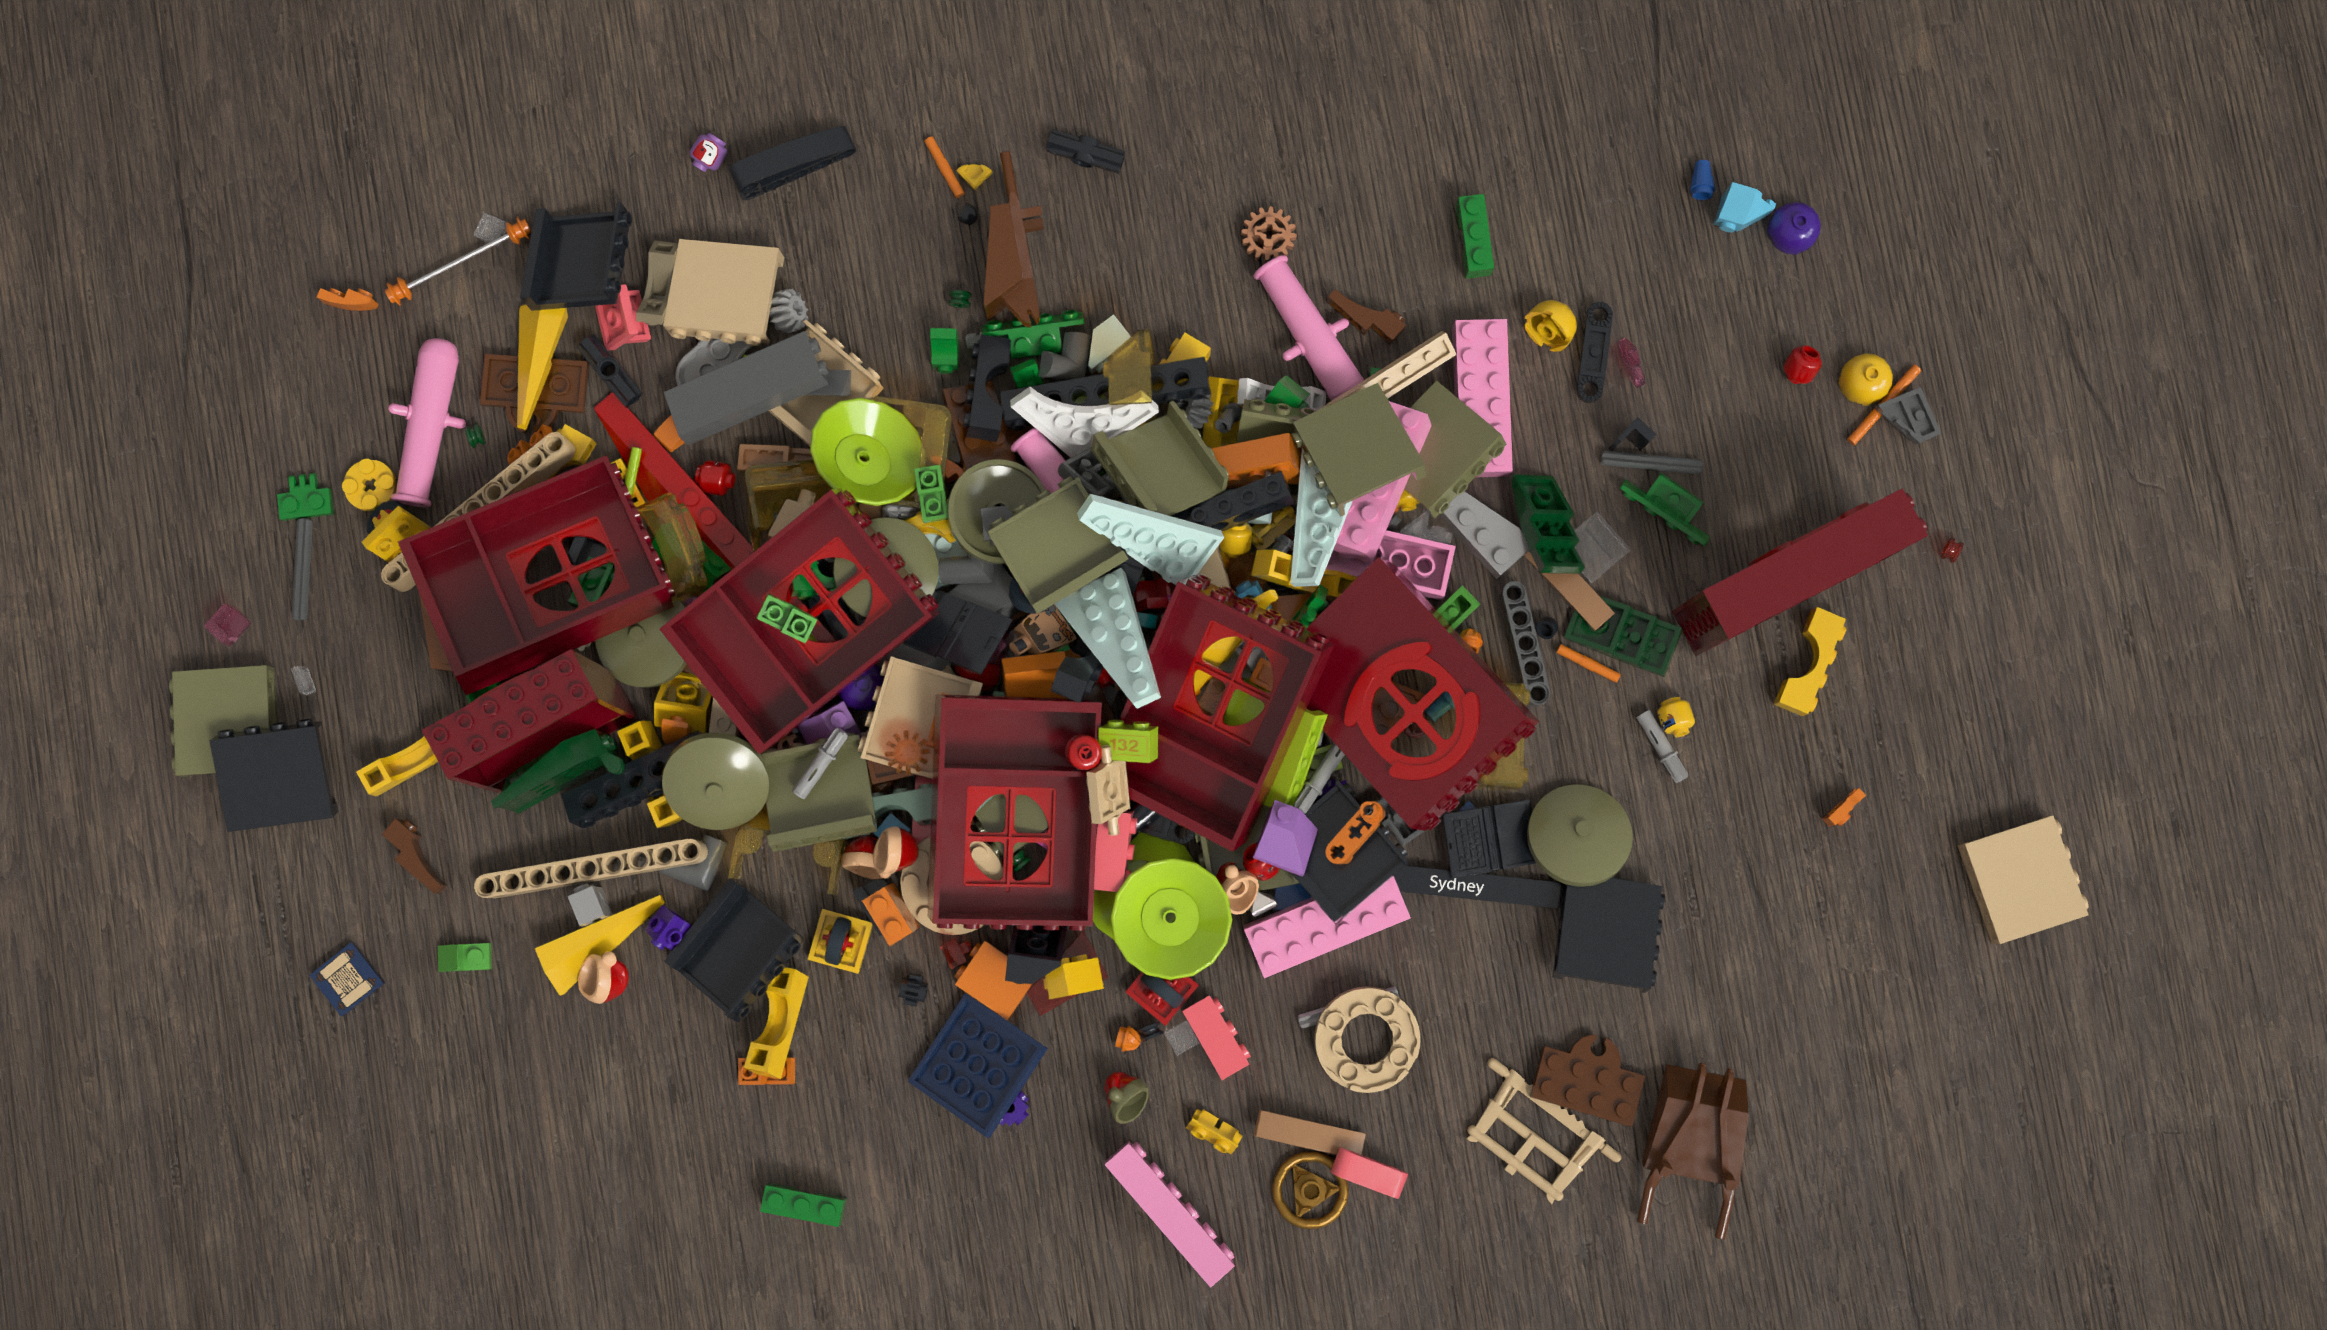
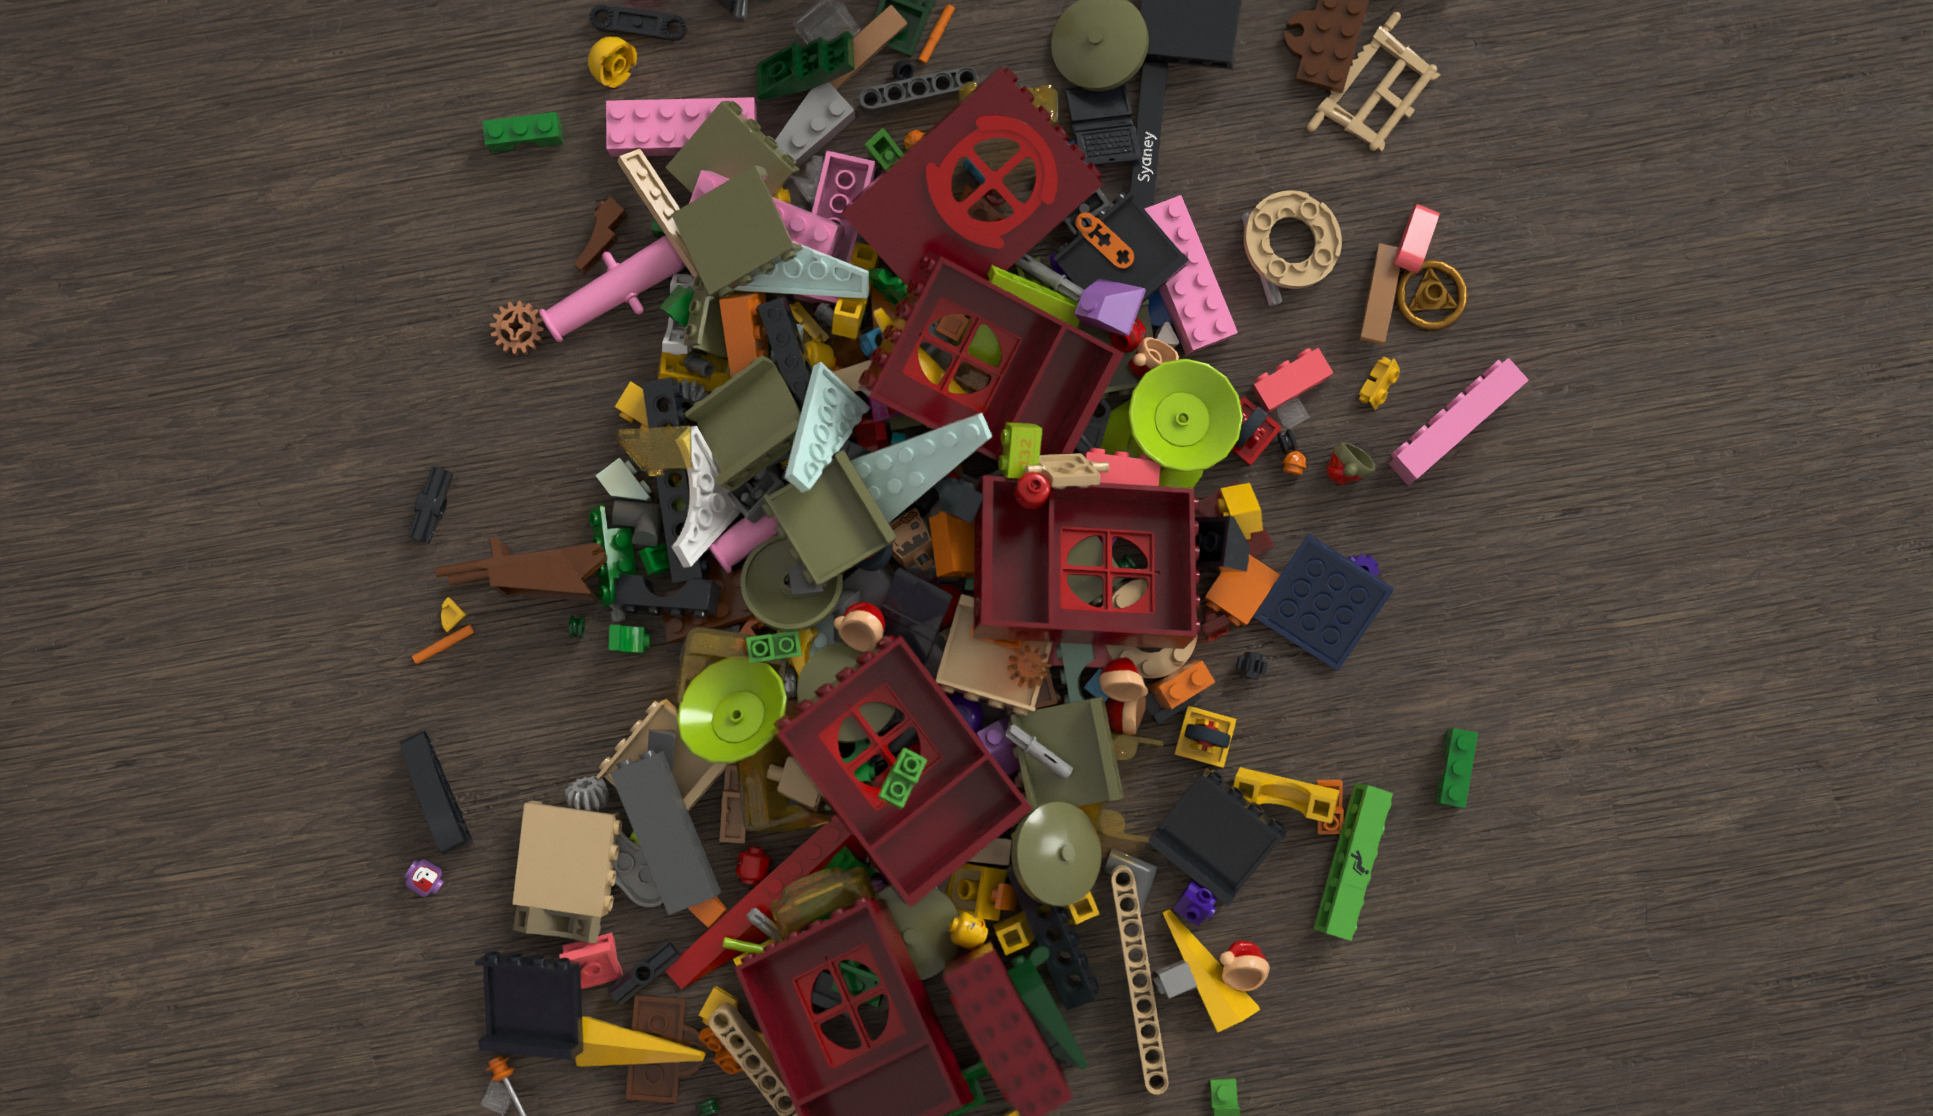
camera: 85 degrees left, 0 degrees up
(640, 692) = (968, 931): none -> yellow head
(654, 487) = (764, 924): none -> light grey axle
(708, 1093) = (1353, 861): none -> bright green brick
(952, 582) = (861, 626): none -> light nougat piece
(968, 215) = (491, 619): black hinge -> none

